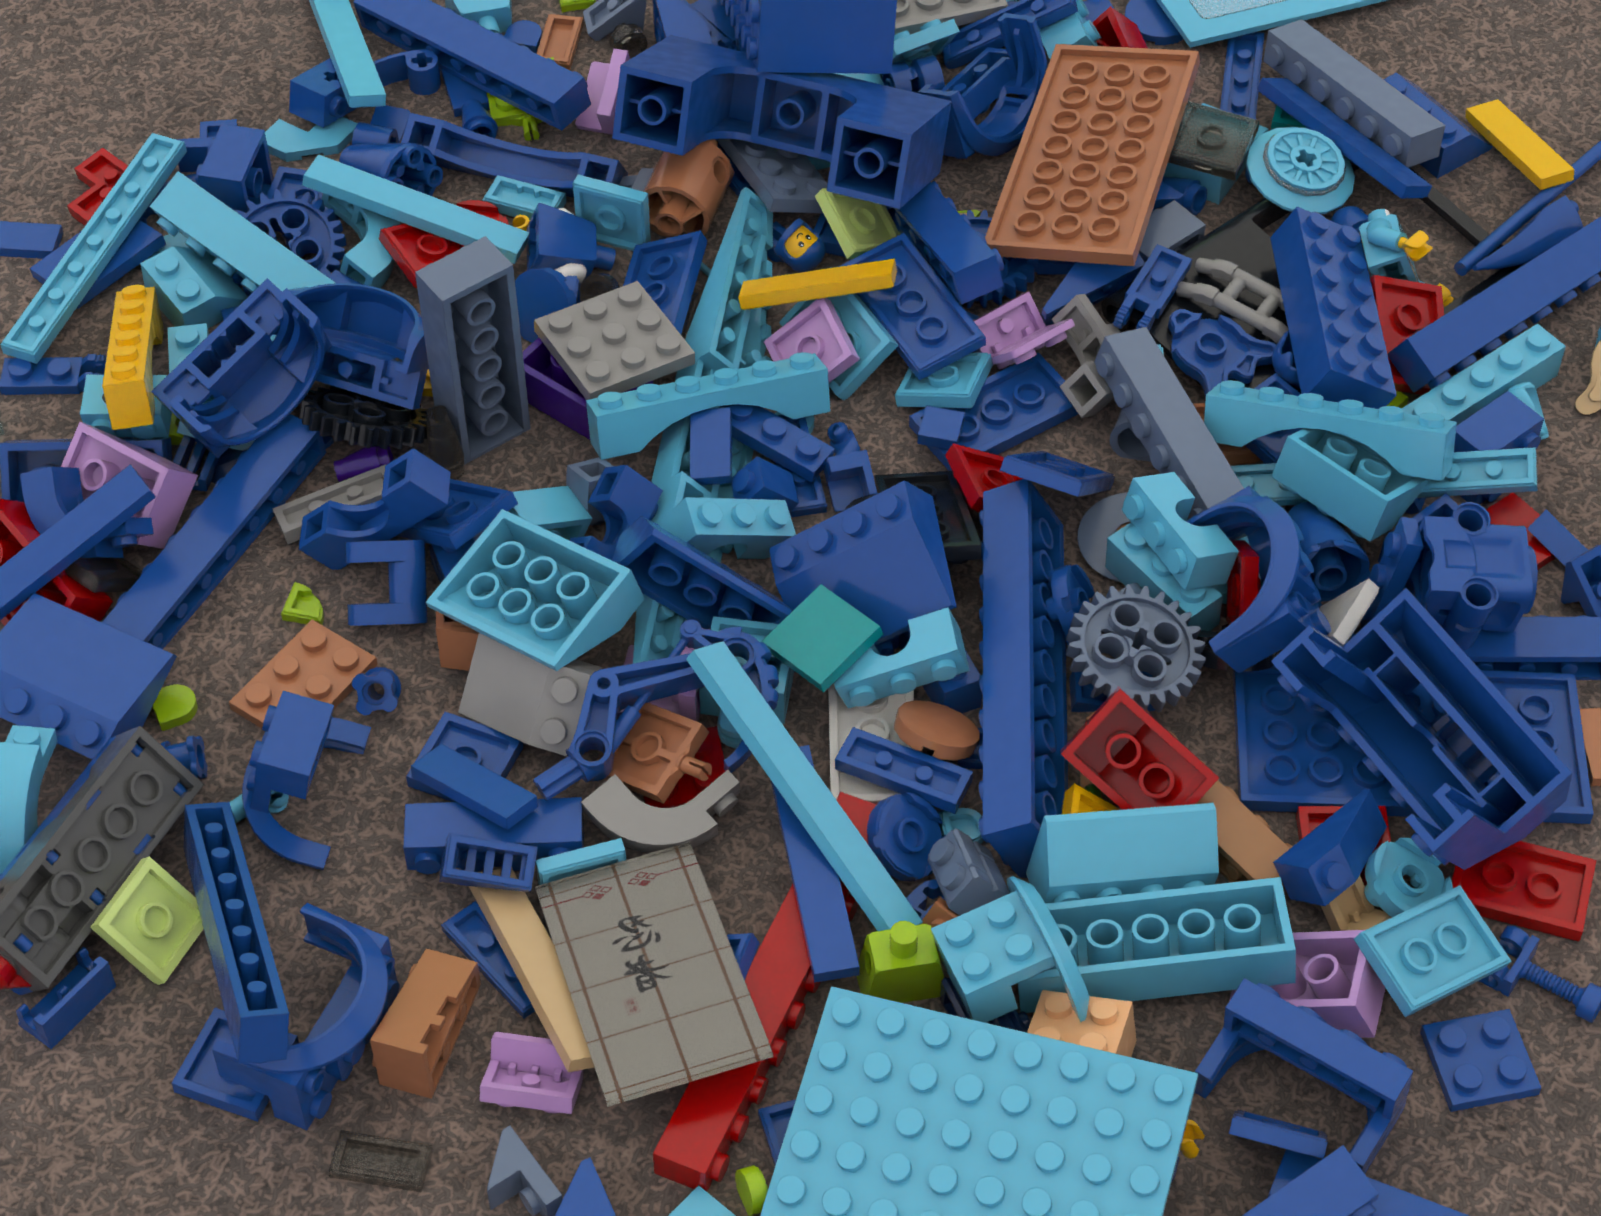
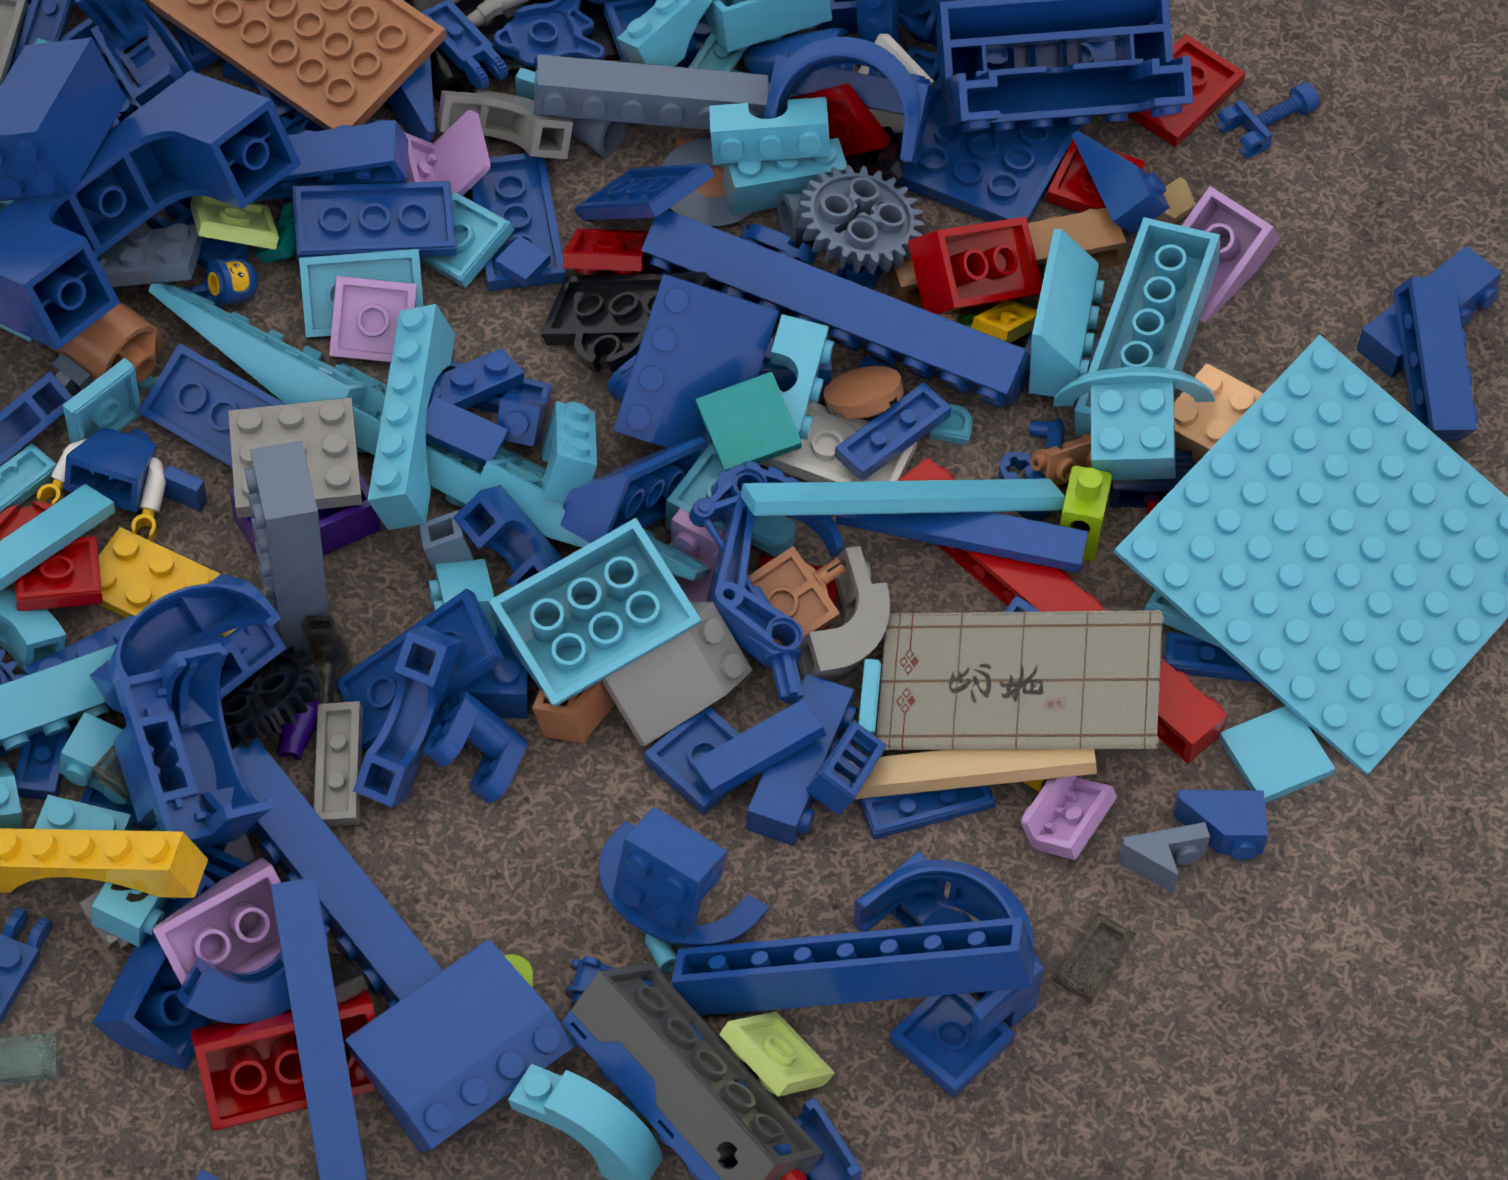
camera: 70 degrees left, 5 degrees up
(302, 606) = (444, 835): lime tile -> none
(310, 665) = (539, 862): nougat plate -> none
(368, 698) = (592, 797): blue brick -> none
(424, 1023) = (967, 842): nougat wedge -> none
(539, 294) = (189, 507): blue tile -> none
(597, 285) = (187, 457): clear smoke tile -> none
(751, 1188) = (1241, 695): lime tile -> none
(818, 284) = (322, 273): yellow tile -> none
(842, 439) = (482, 343): blue arm -> none
(848, 478) = (542, 351): blue panel -> none
(902, 835) = (954, 458): blue tile -> none
(965, 872) = (1026, 428): sand blue brick -> none
(1263, 1020) = (1338, 252): blue piece -> none
(1279, 1133) = (1356, 322): blue tile -> none
(1386, 871) = (1162, 152): medium azure plate -> none
(1432, 950) = (1239, 160): medium azure tile -> none
(1480, 1060) = (1320, 188): blue plate -> none

